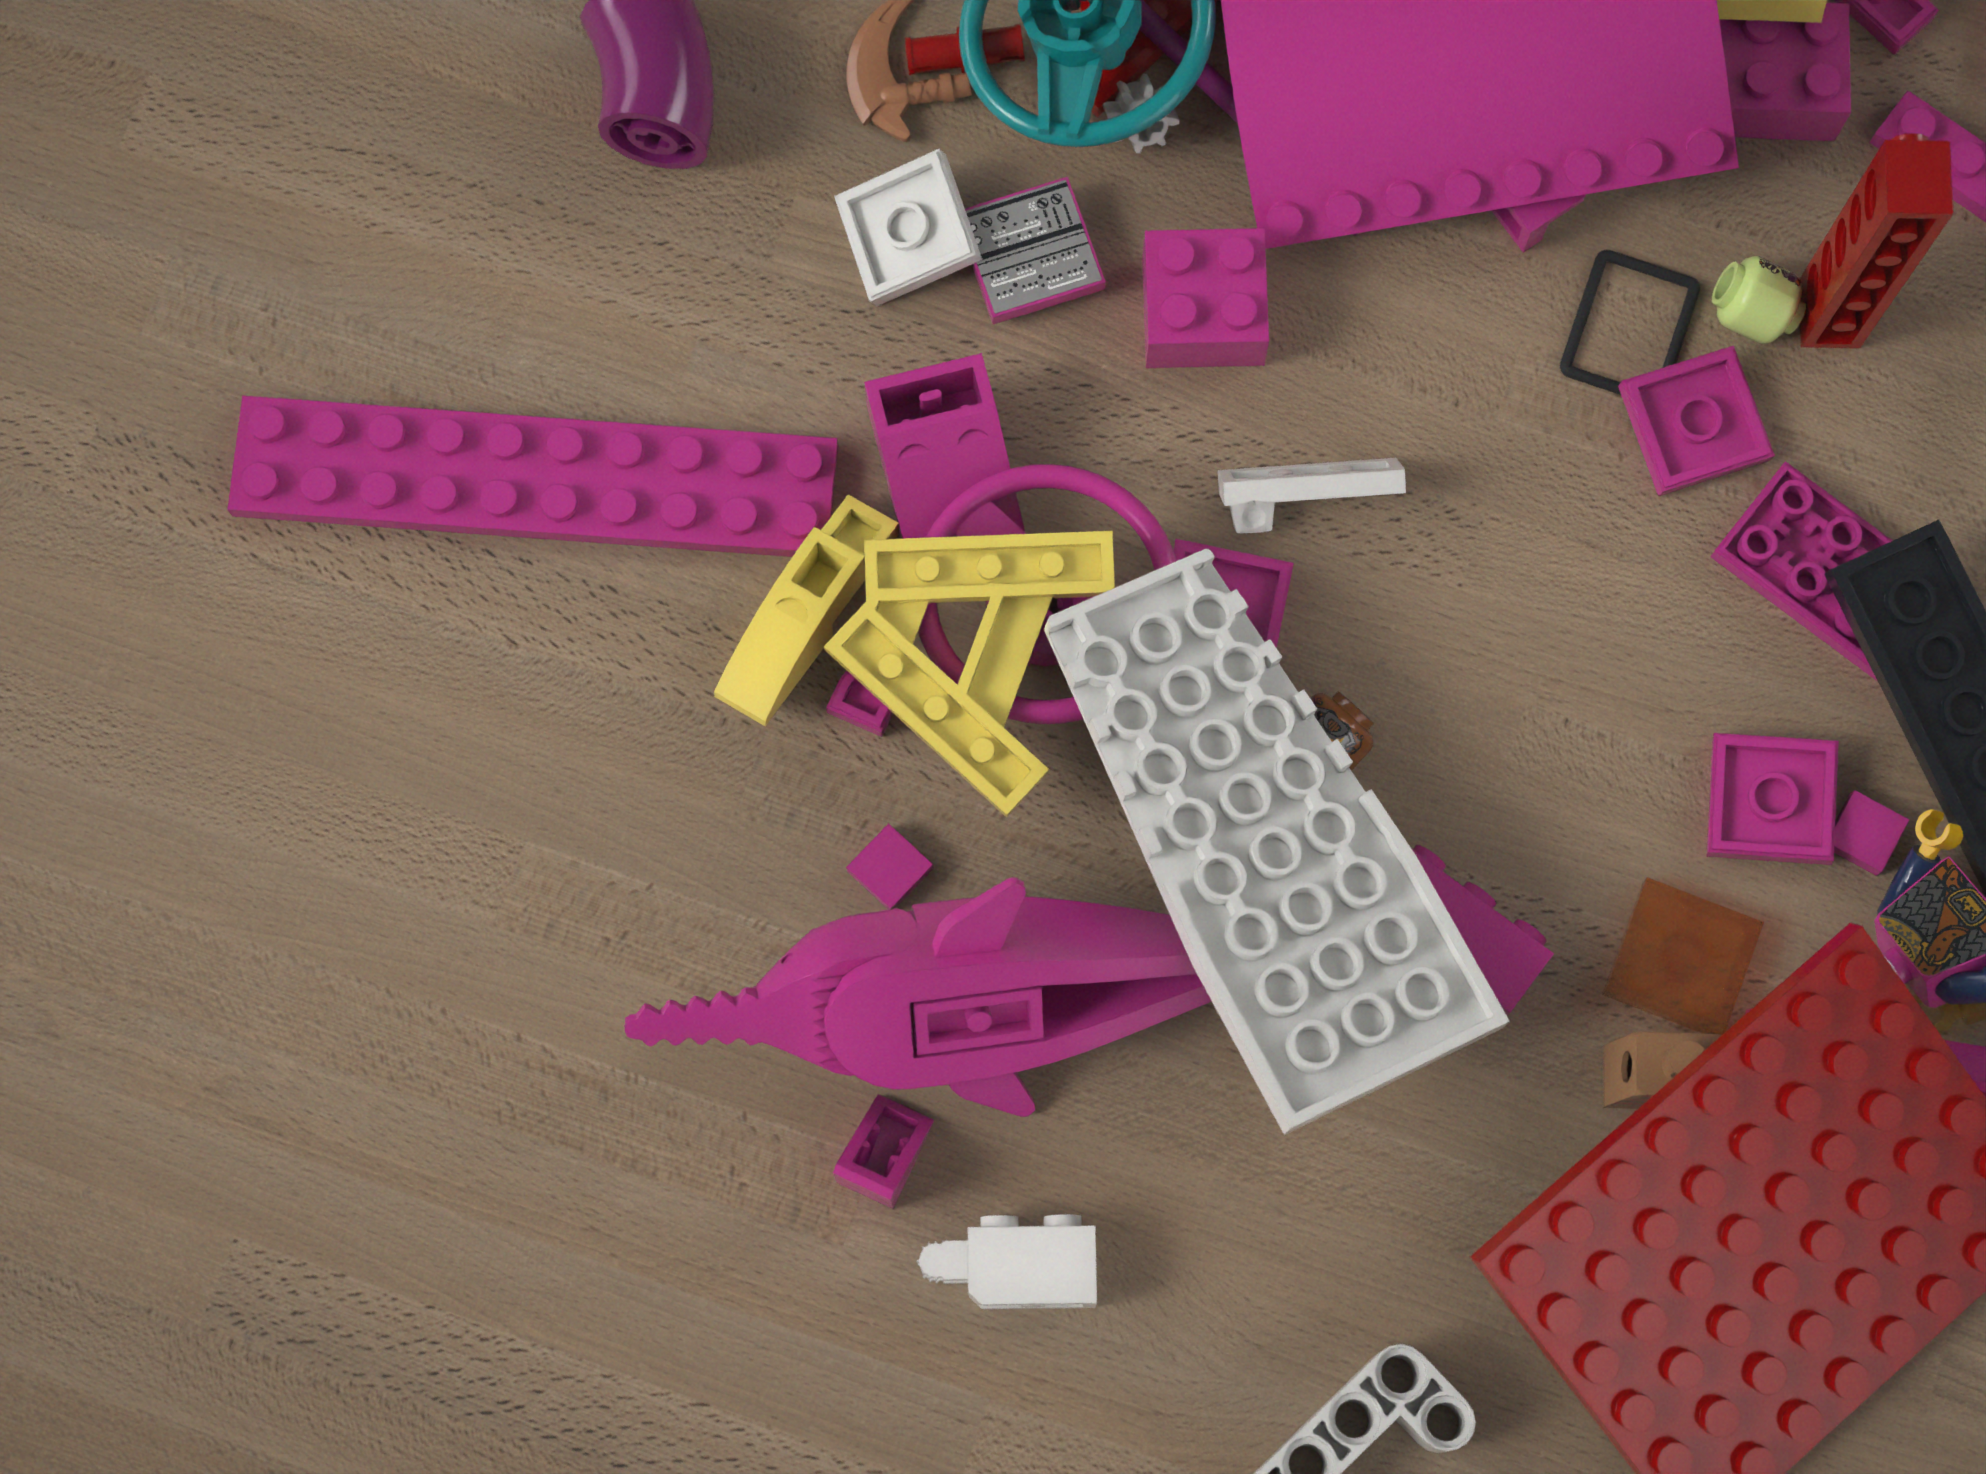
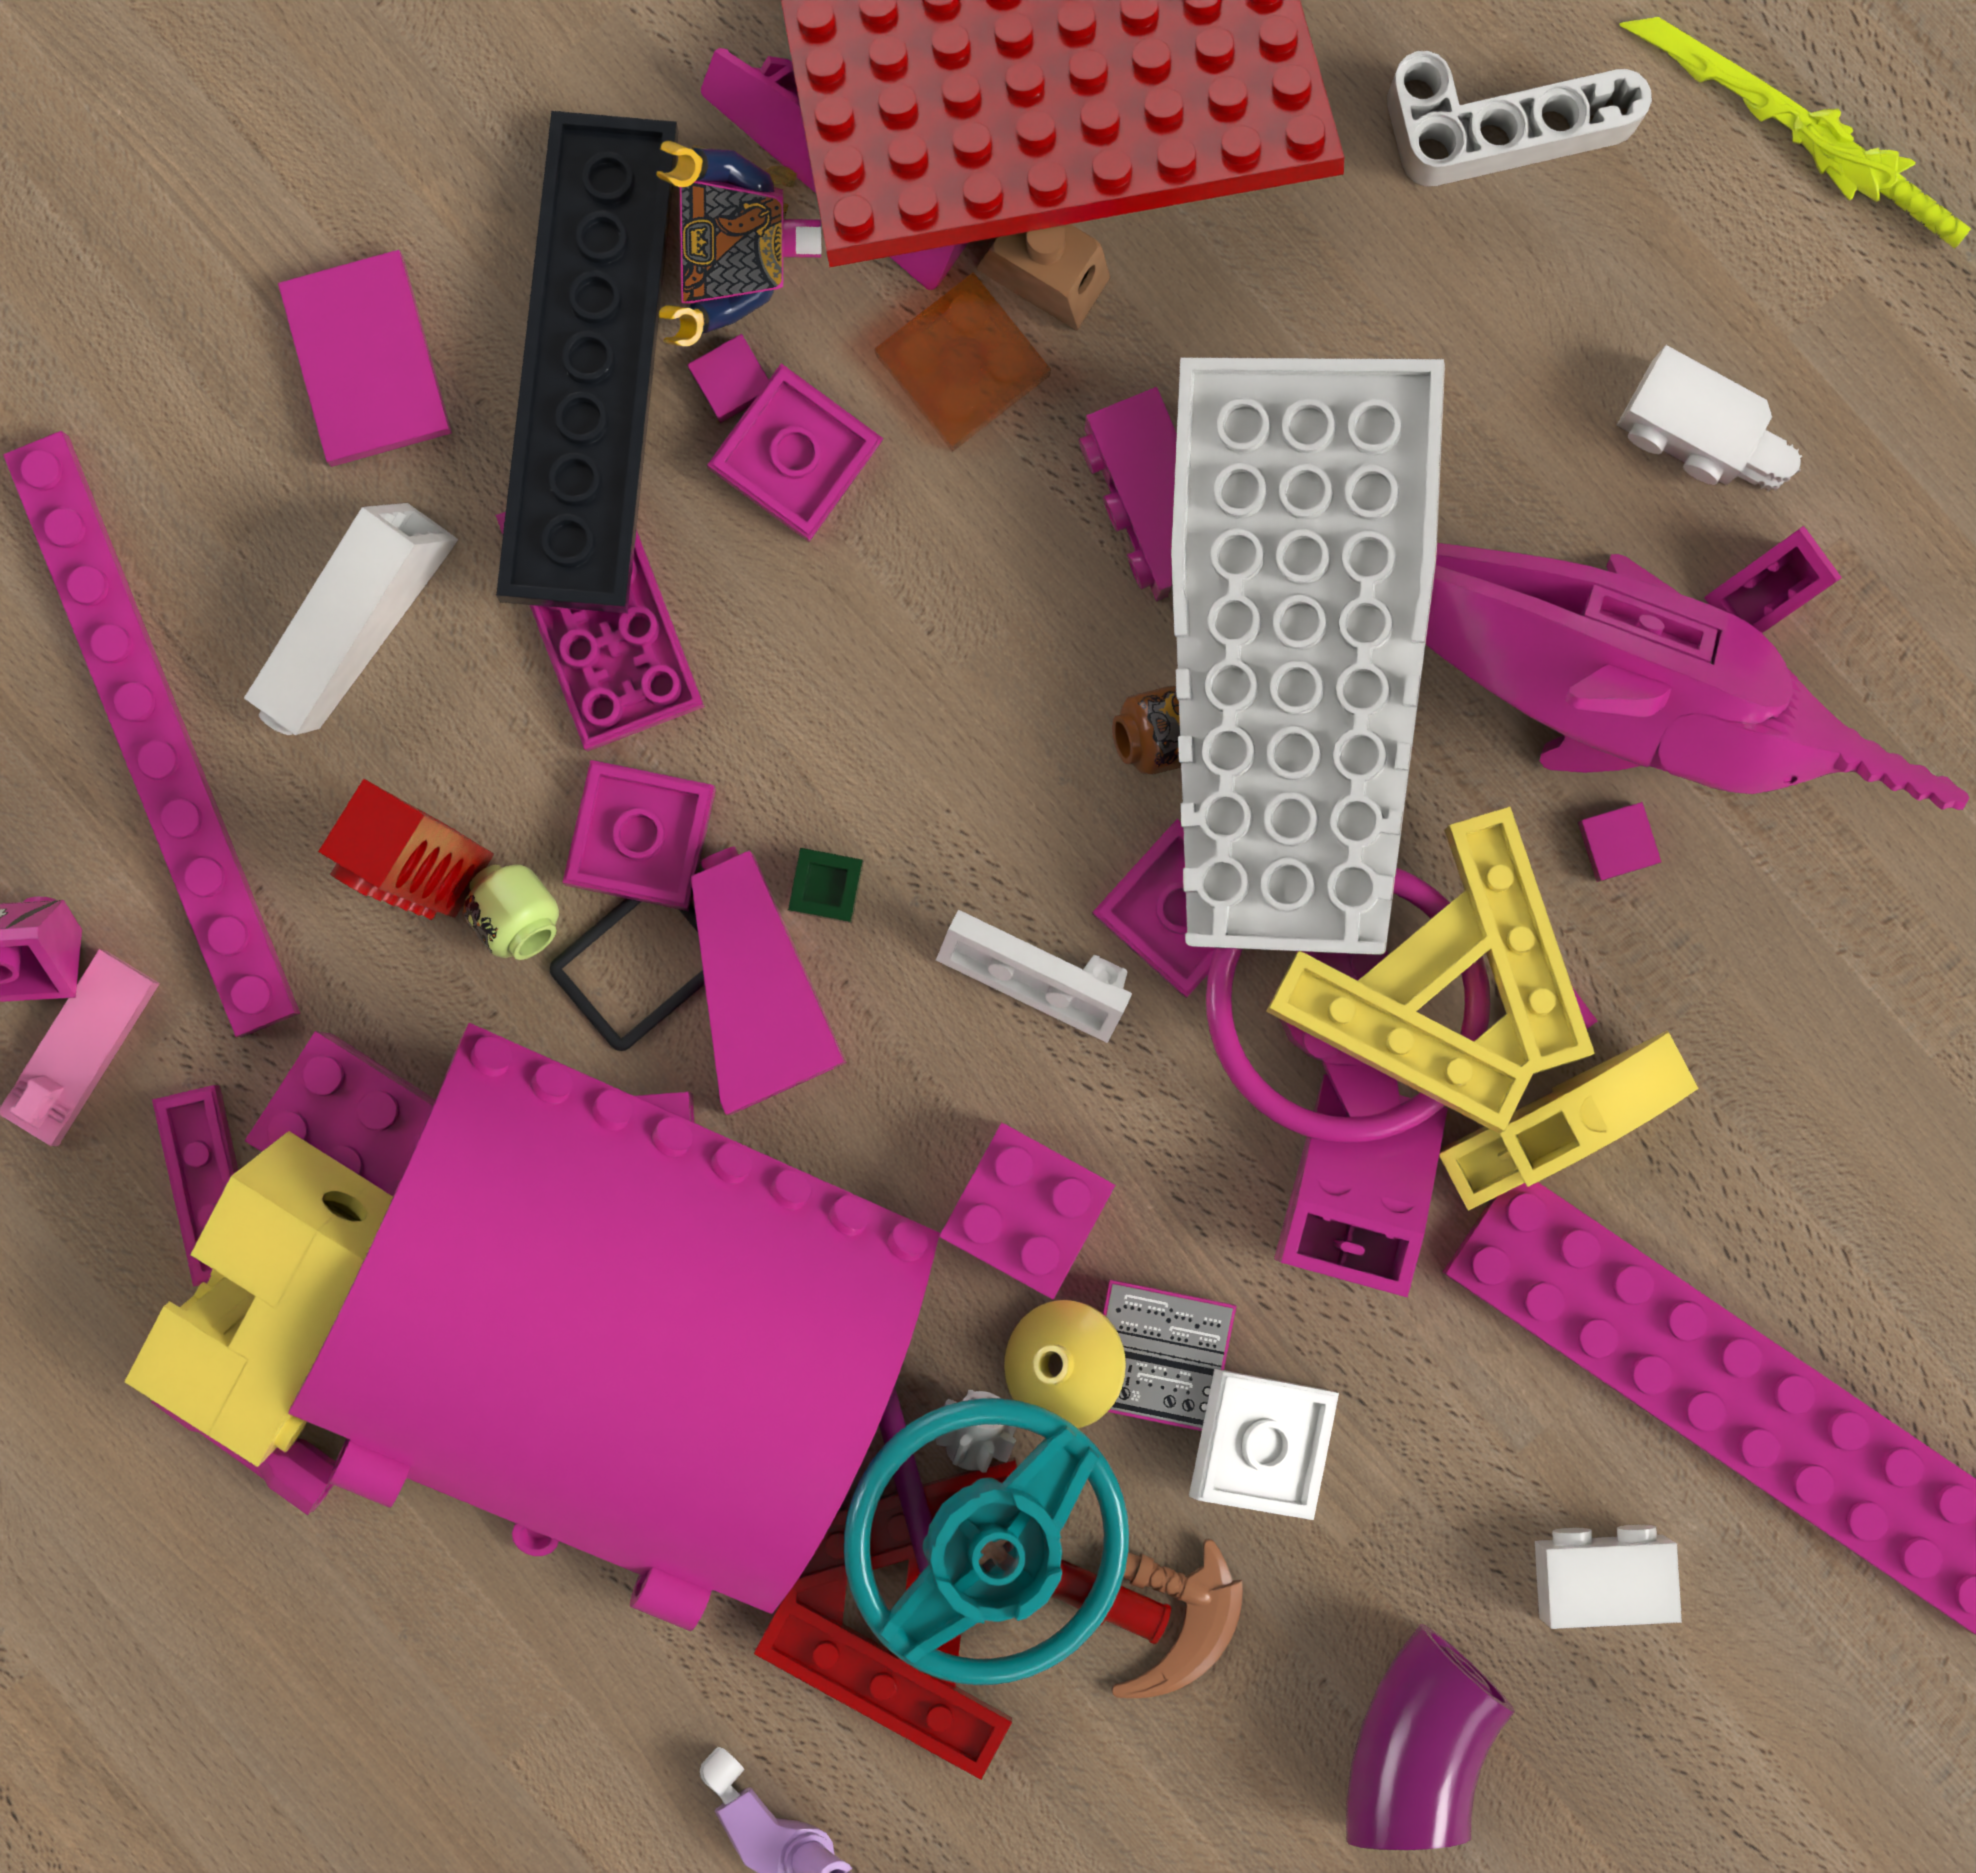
camera: 150 degrees left, 10 degrees up
(574, 274) = (1607, 1578): none -> white brick
(1101, 201) = (1090, 1358): none -> light yellow dish
(1522, 462) = (826, 885): none -> dark green plate
(1527, 352) = (758, 994): none -> dark pink slope

